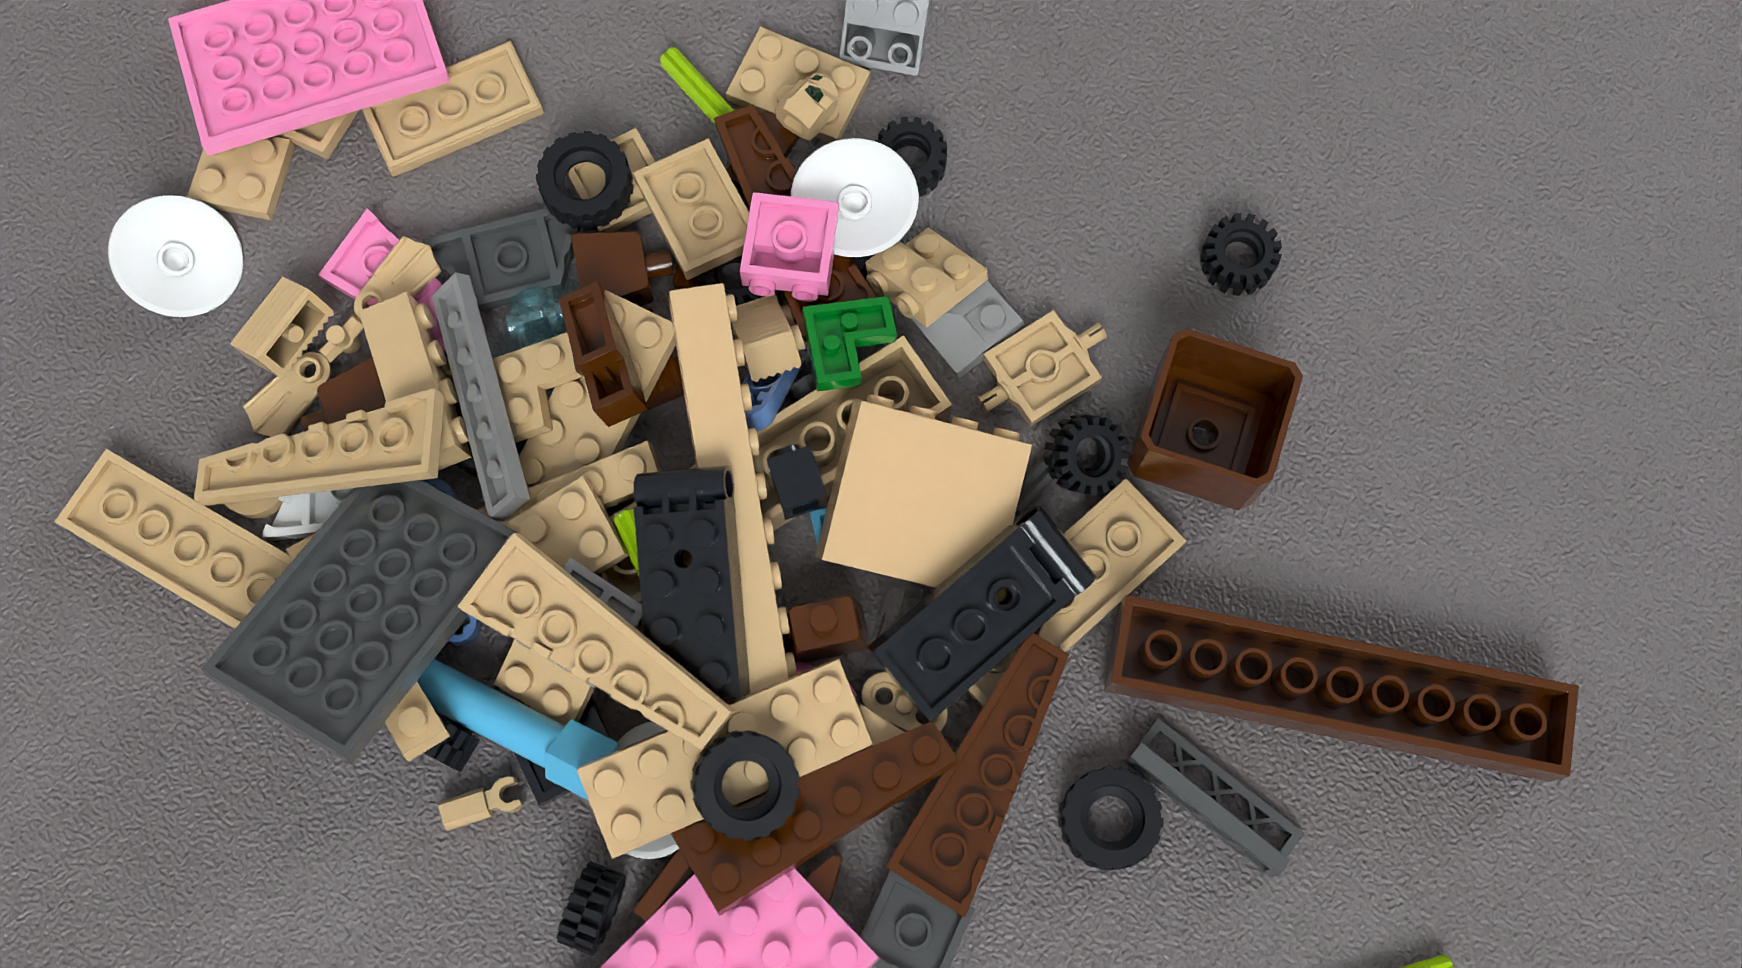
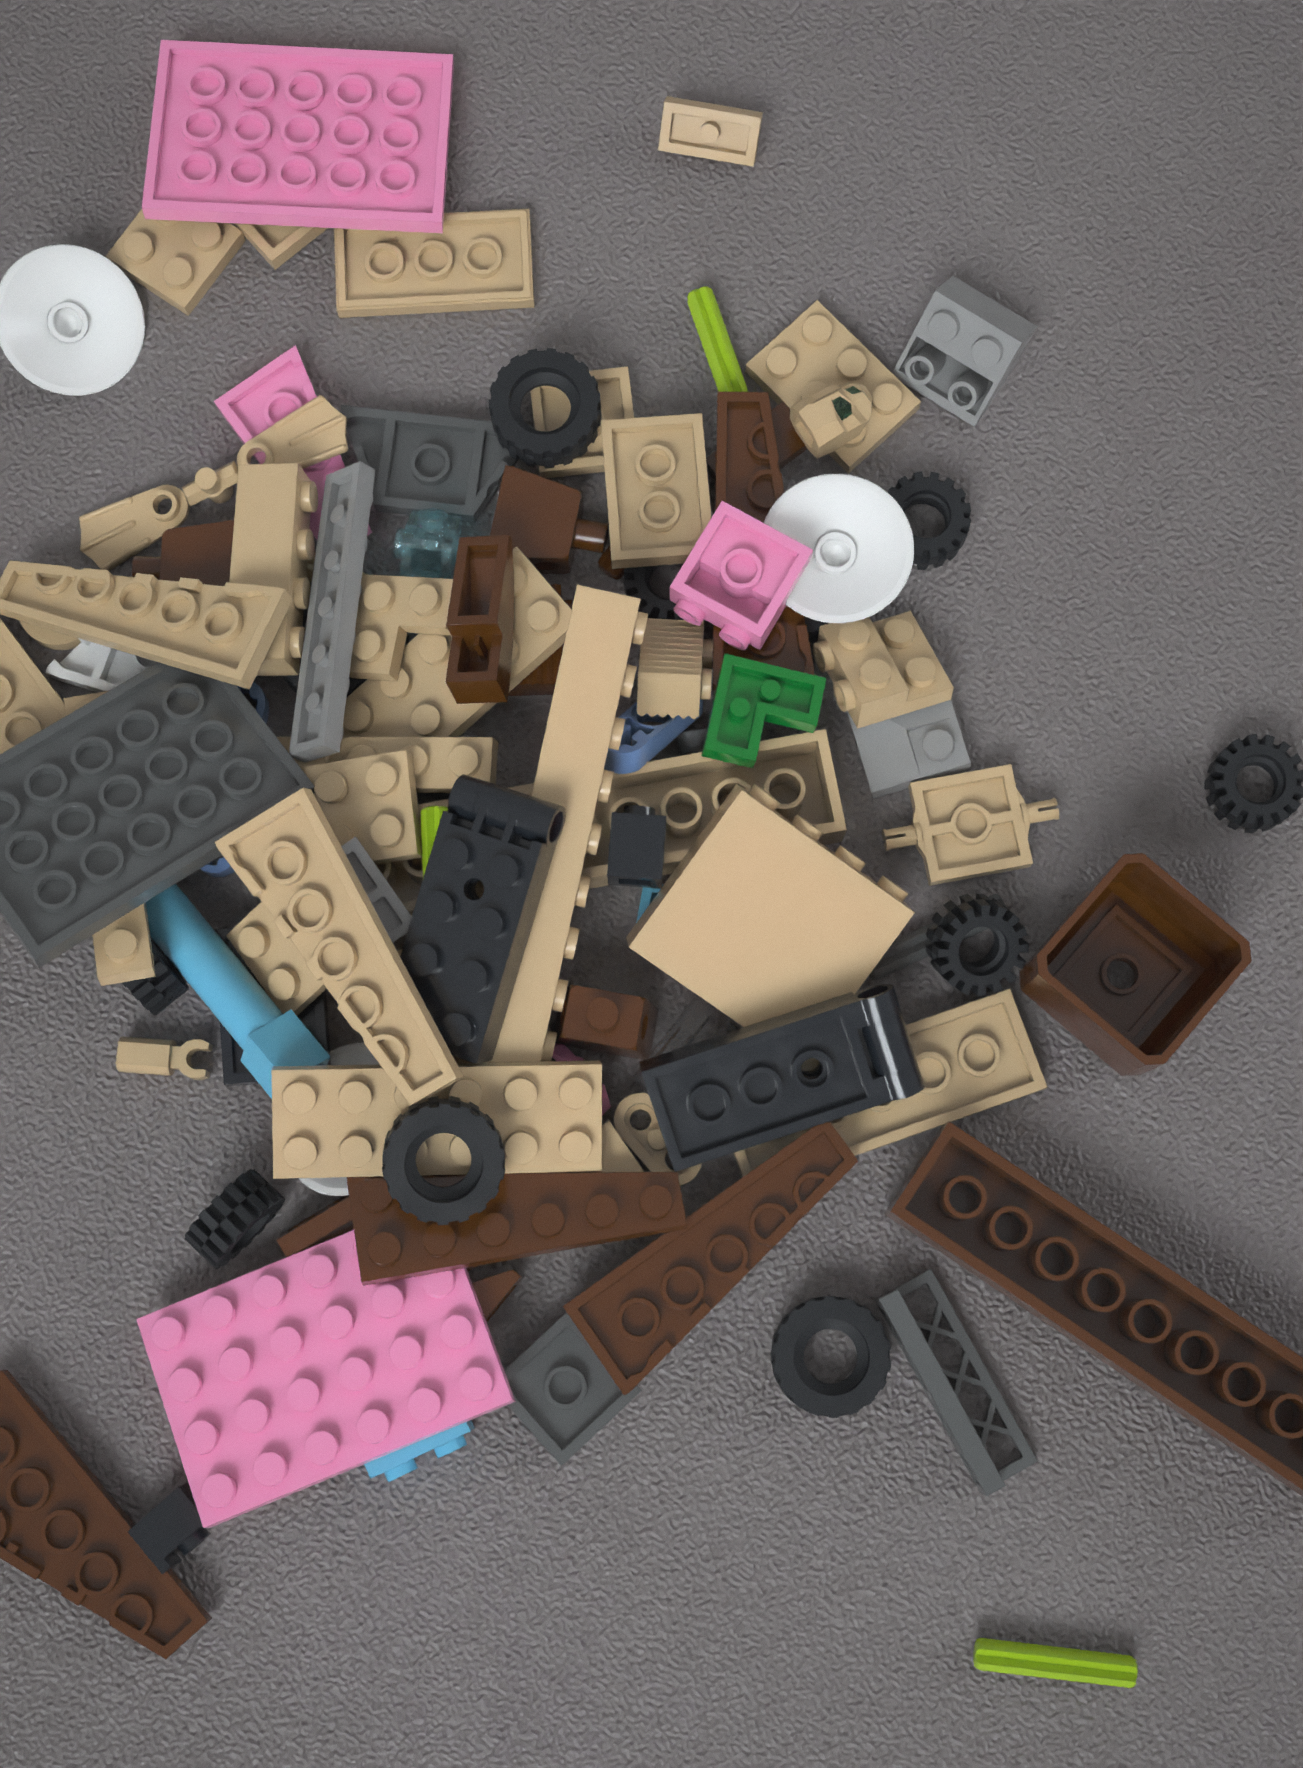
camera: 25 degrees right, 5 degrees up
(282, 327) = (152, 446): tan brick -> none

